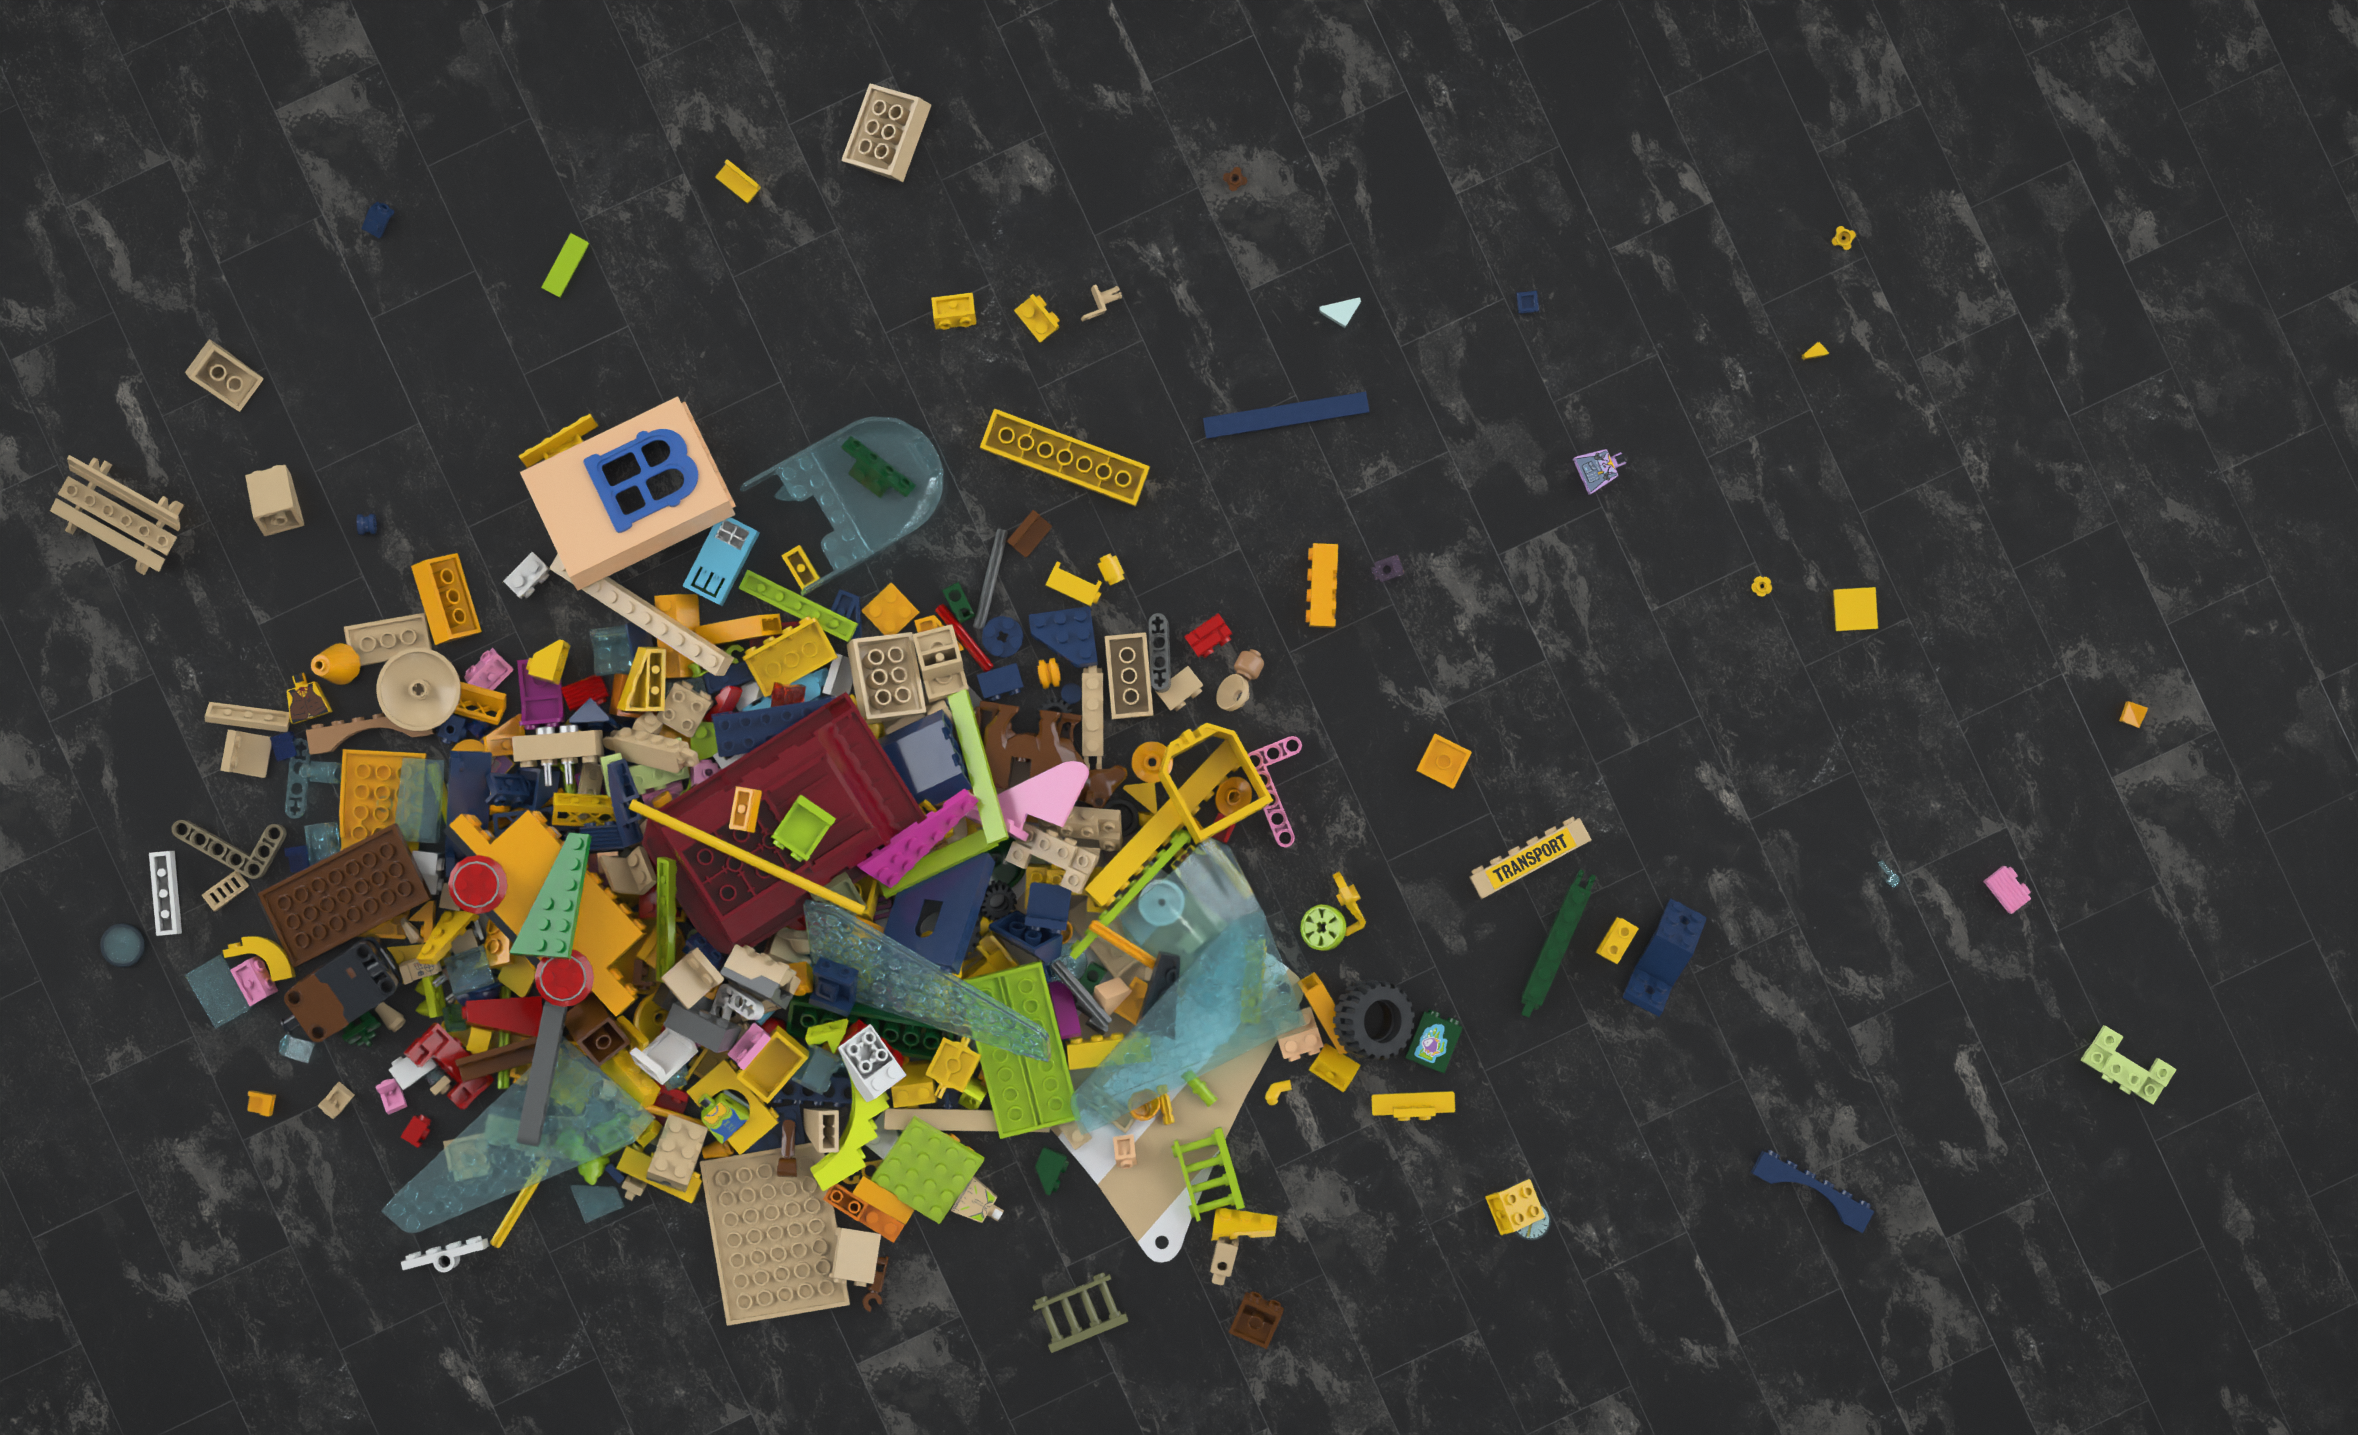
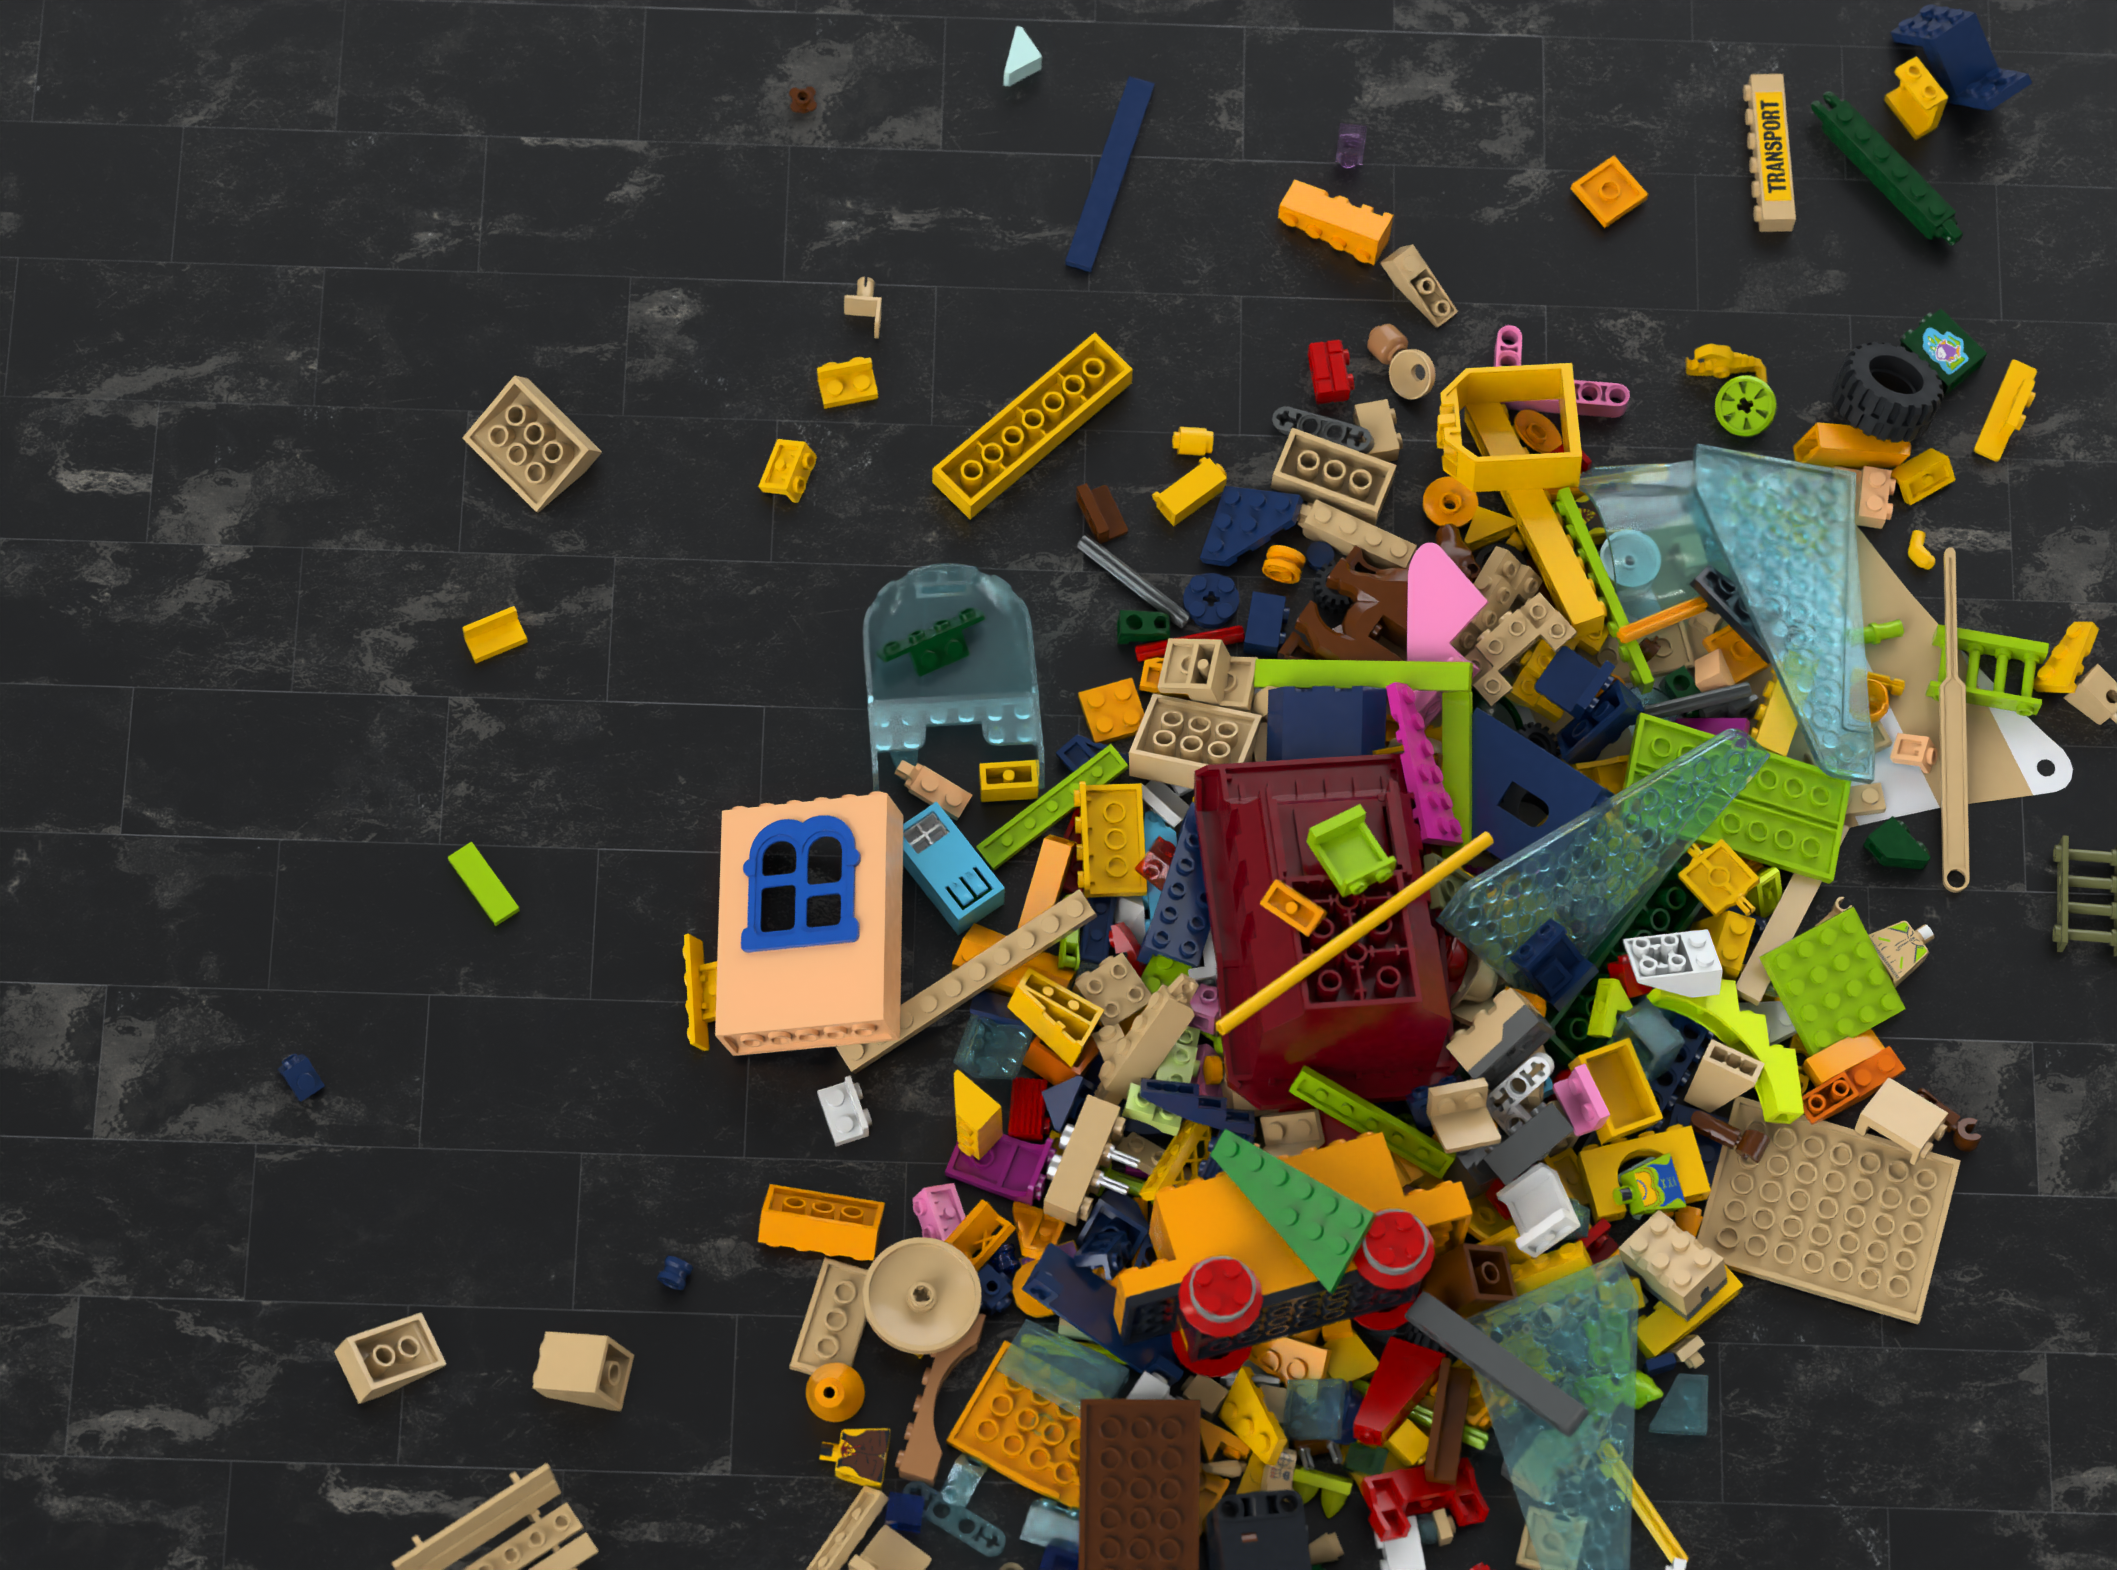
camera: 70 degrees left, 20 degrees down
(775, 522) = (933, 787): none -> light nougat hinge
(983, 1147) = (1835, 910): none -> tan hand
(1104, 944) = (1649, 647): none -> reddish brown plate
(1140, 1174) = (1953, 743): none -> tan piece
(1305, 665) = (1419, 284): none -> tan slope

